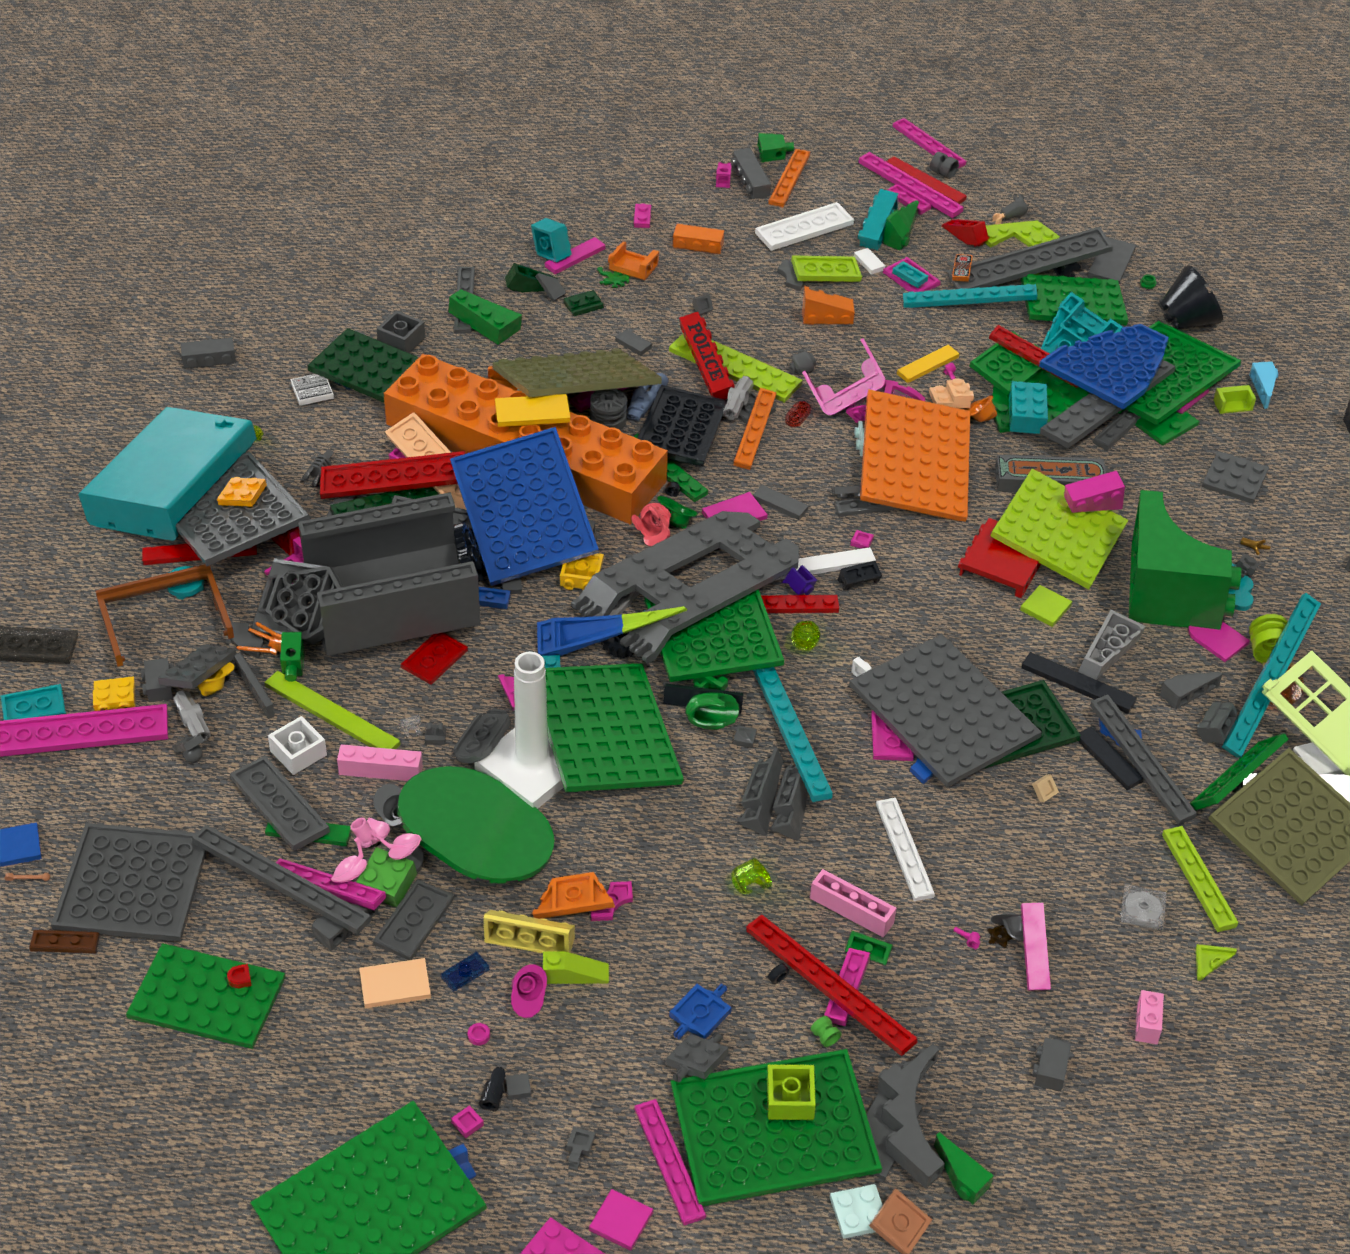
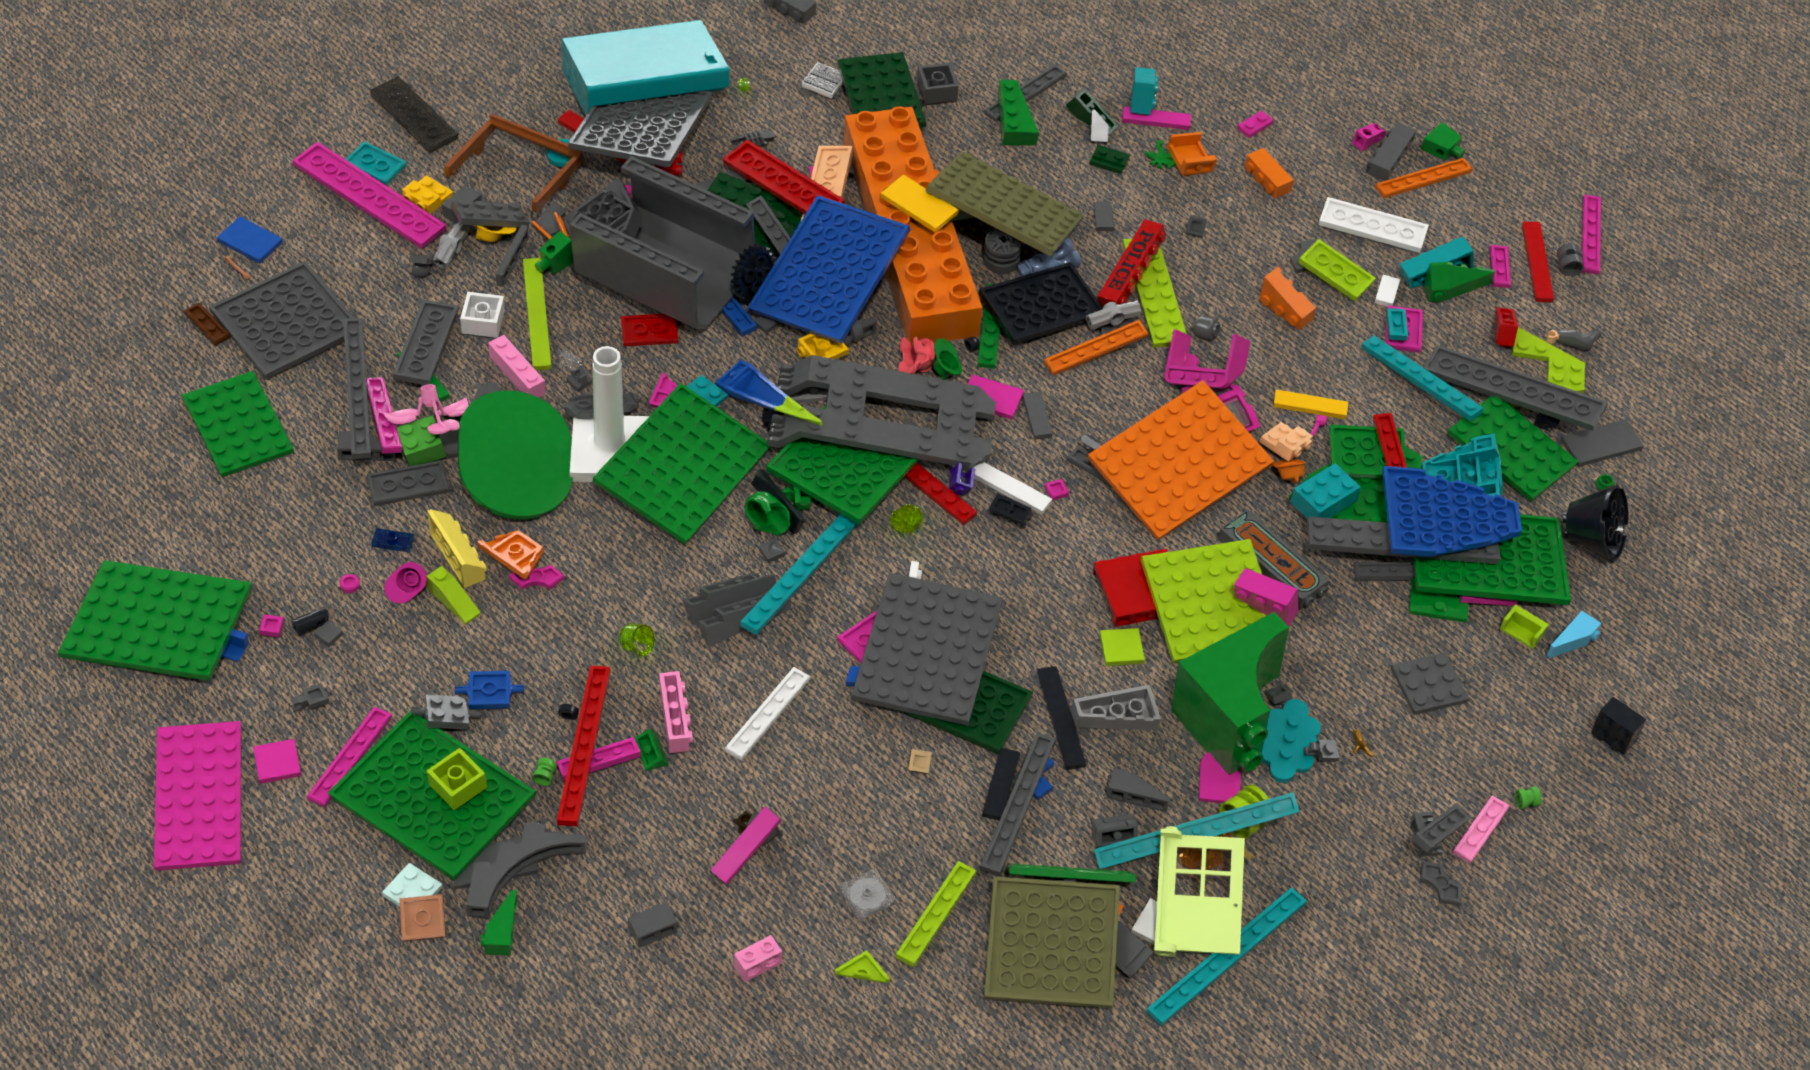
camera: 45 degrees right, 5 degrees up
(239, 976) = (263, 426): red tile -> none
(241, 492) = (658, 114): light orange plate -> none
(395, 983) = (345, 510): light nougat tile -> none
(797, 414) = (1149, 363): clear red plate -> none
(913, 185) = (1517, 256): dark pink plate -> none
(962, 267) = (1448, 350): tile -> none
(973, 938) = (722, 808): dark pink hand -> none

